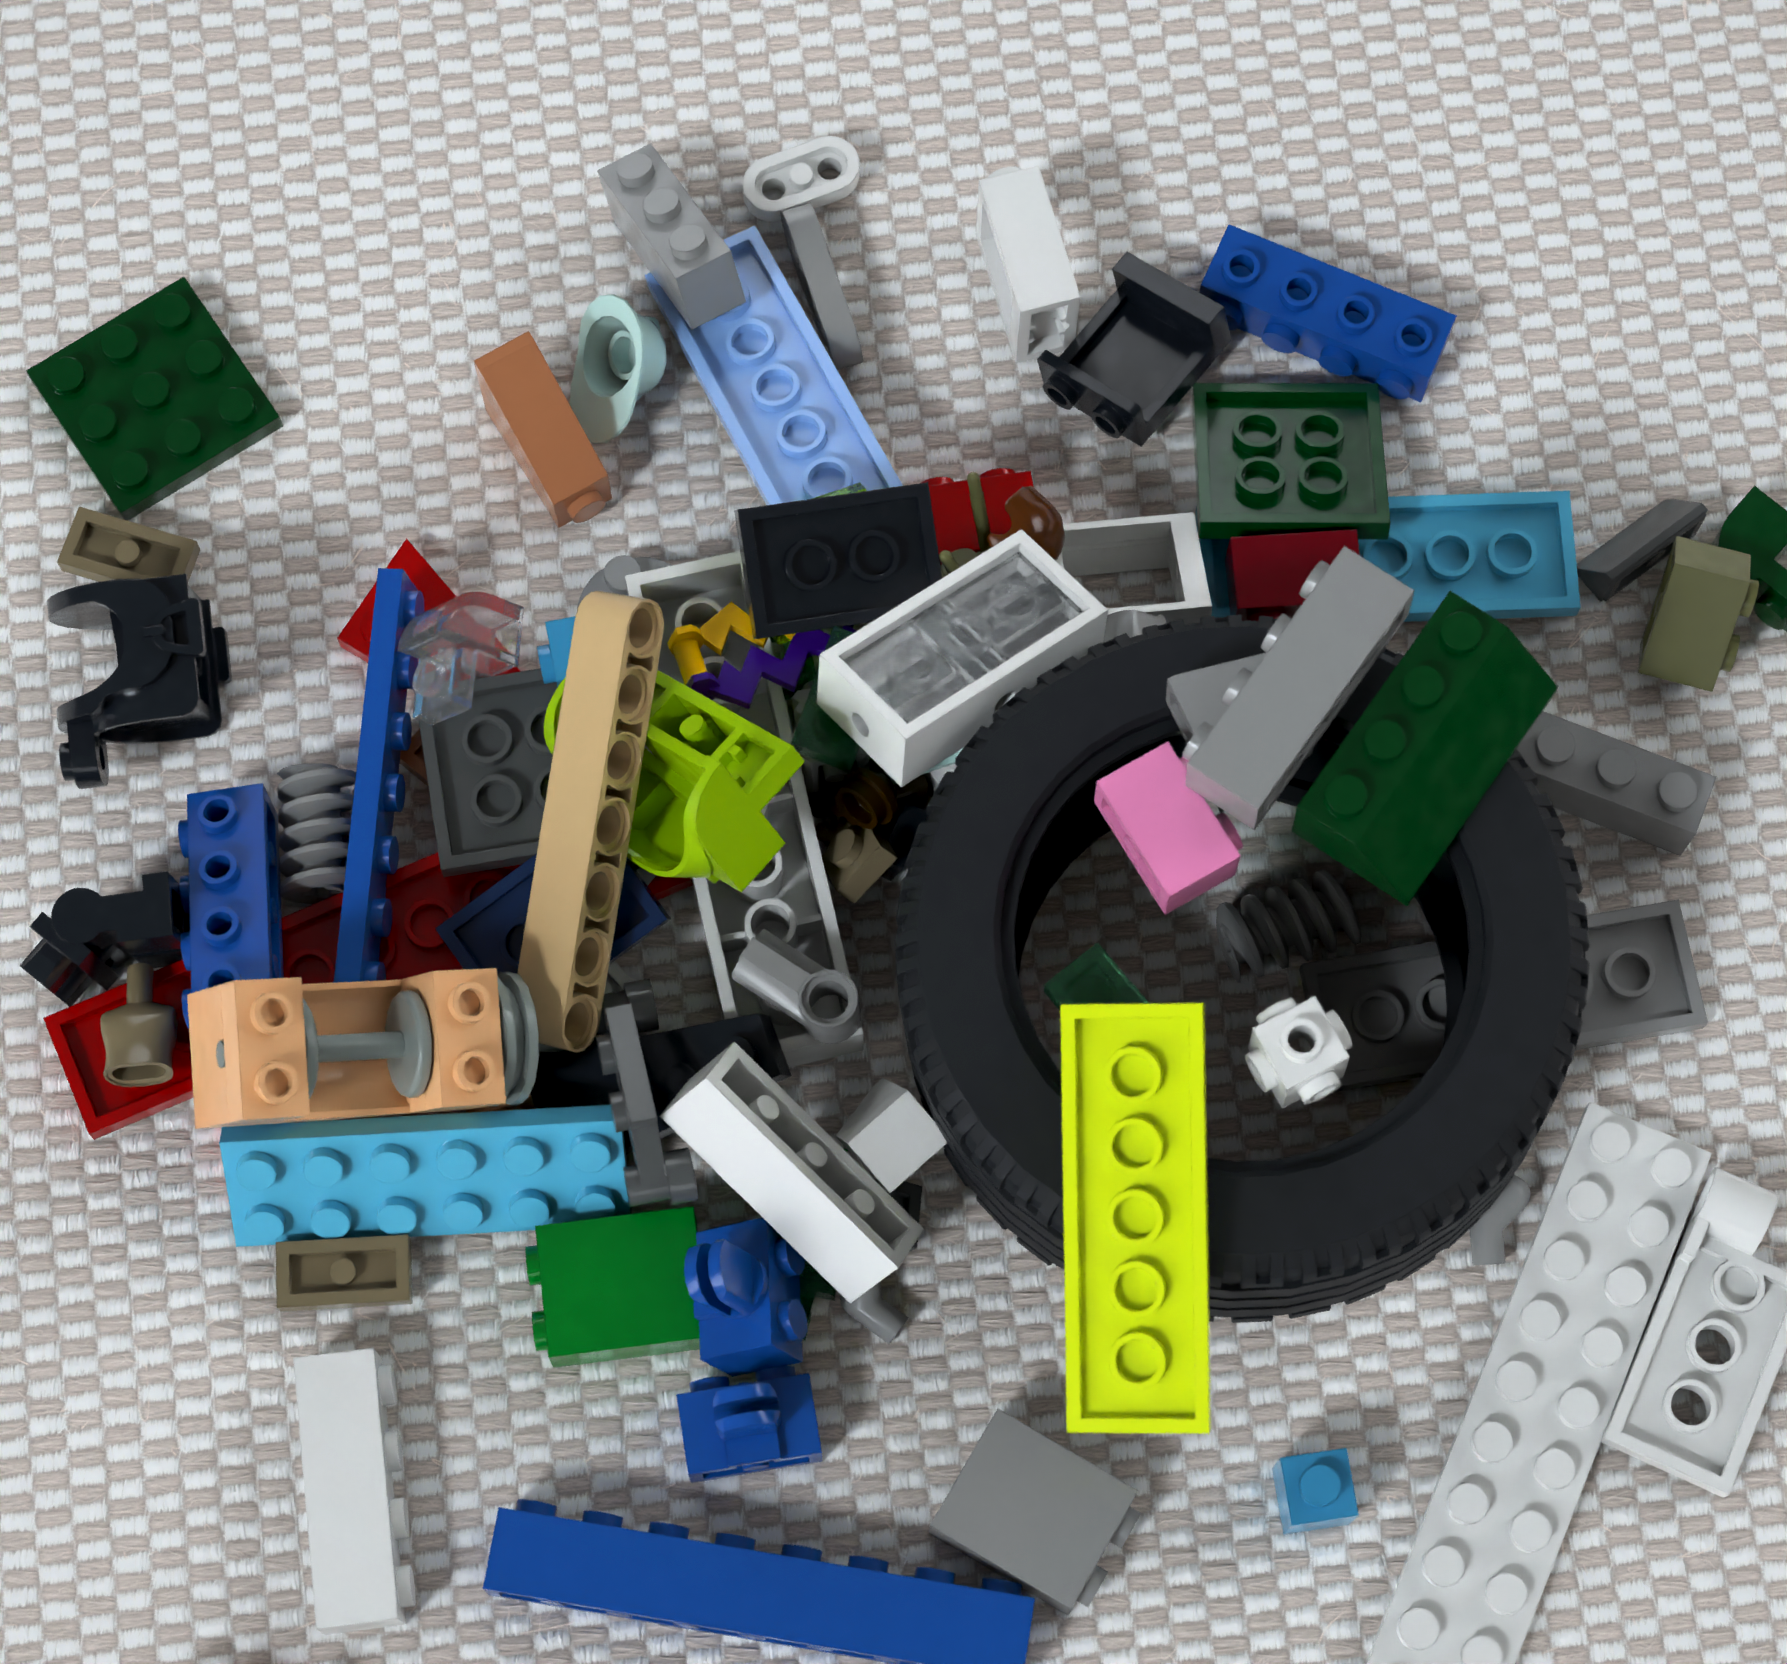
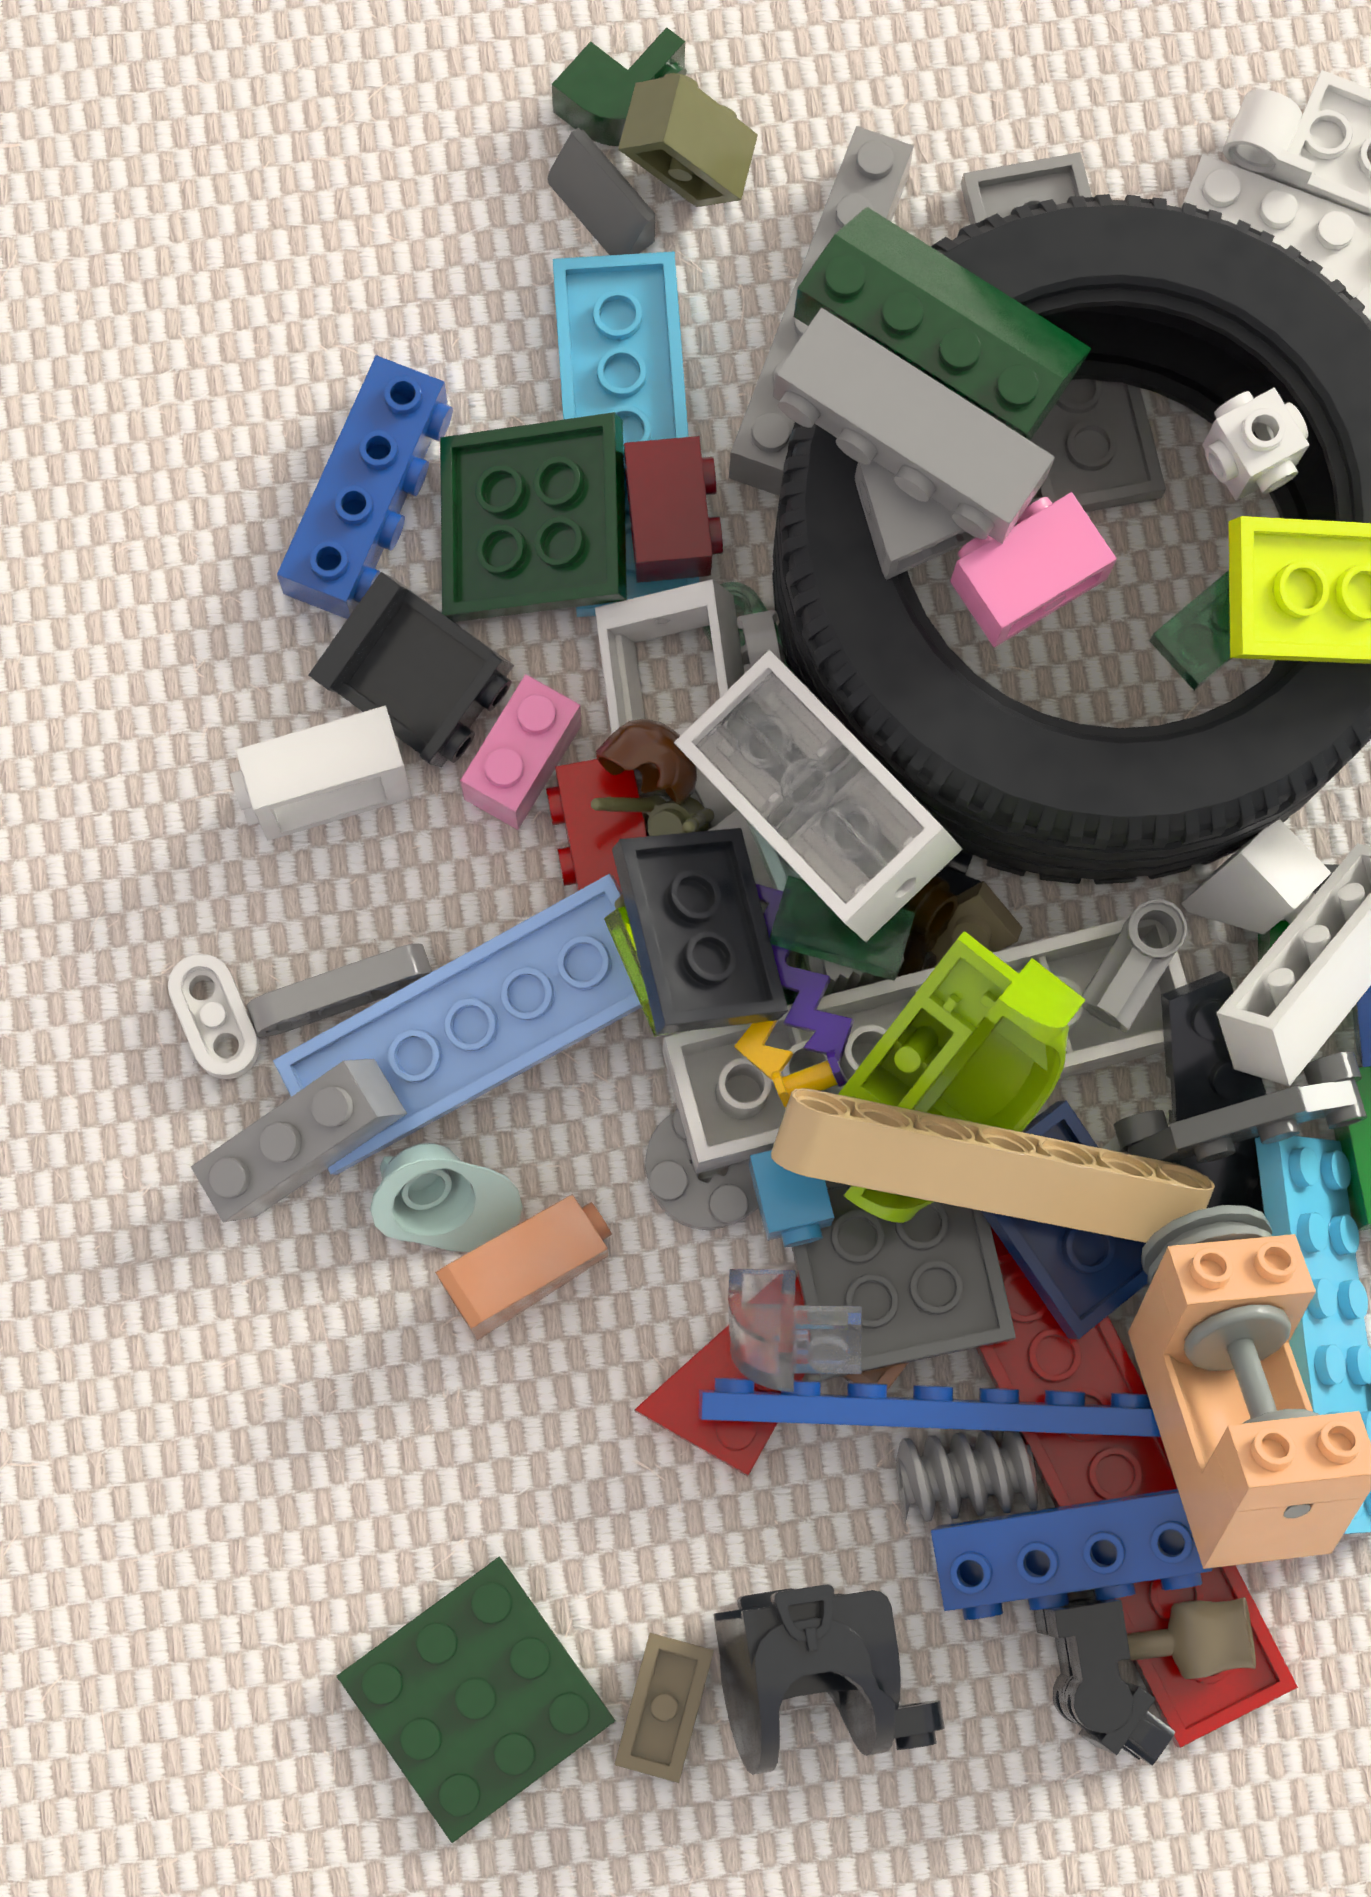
camera: 95 degrees left, 5 degrees up
(1063, 451) = (521, 752): none -> bright pink brick

